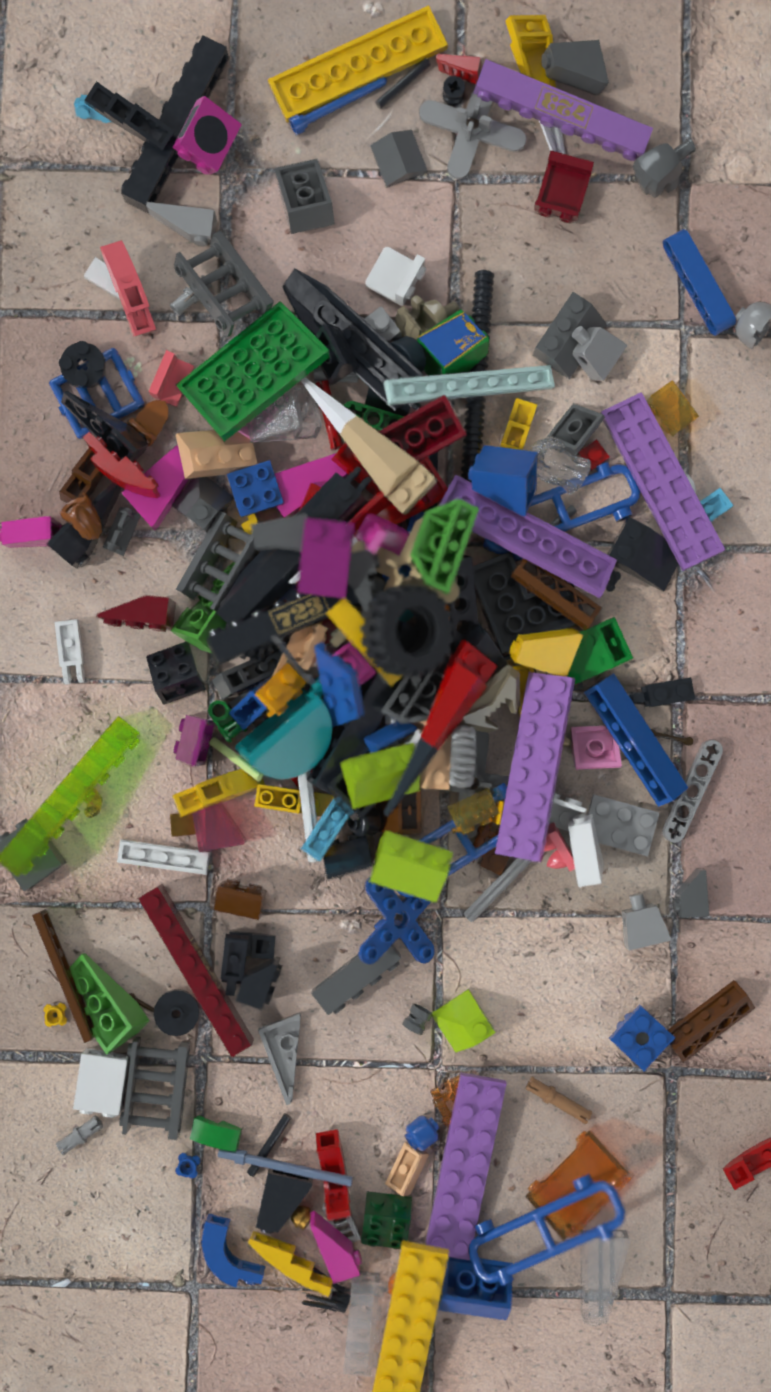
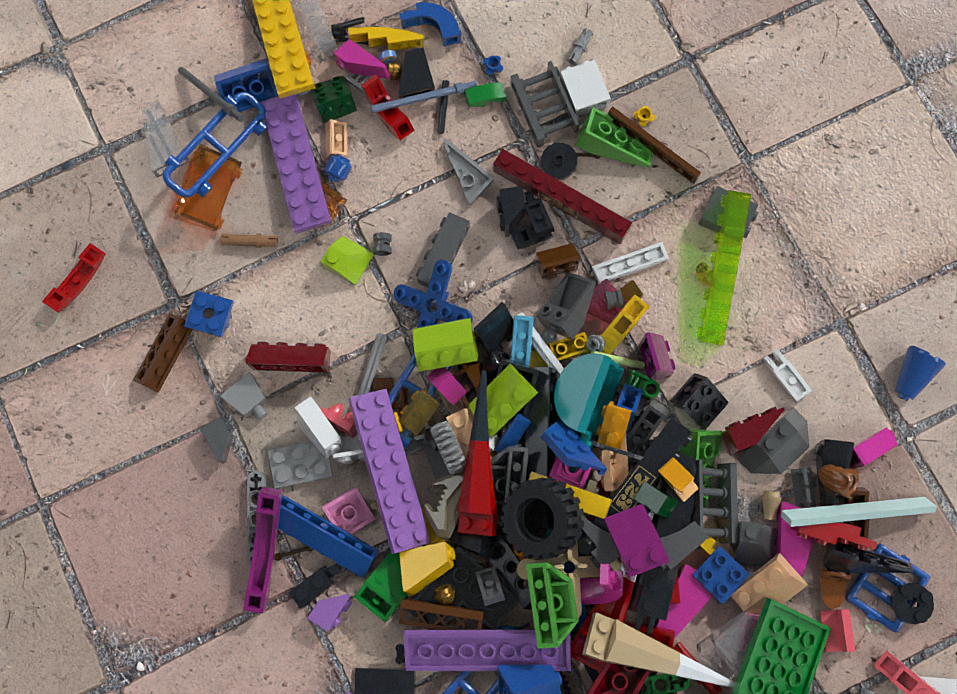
camera: 160 degrees right, 10 degrees down
(83, 477) = (858, 511): none -> light aqua tile
(120, 583) = (778, 446): none -> dark grey wedge
(162, 533) = (771, 502): none -> tan cone
(205, 823) = (613, 299): none -> dark grey wheel
(247, 598) = (678, 479): none -> light orange slope
(247, 790) = (600, 343): none -> light grey plate
(259, 842) = (566, 307): none -> dark grey slope
(282, 590) = (655, 499): none -> slope
(301, 1238) = (387, 56): none -> medium blue tile
(429, 823) = (447, 384): none -> dark pink slope
(492, 595) = (490, 586): none -> dark grey slope
(510, 1265) = (228, 108): none -> dark grey bar
(541, 611) = (444, 594): none -> pearl gold plate
(578, 944) = (289, 358): none -> dark red slope
(664, 659) = (328, 611): none -> medium lavender slope
(690, 770) = (264, 548): none -> magenta arch

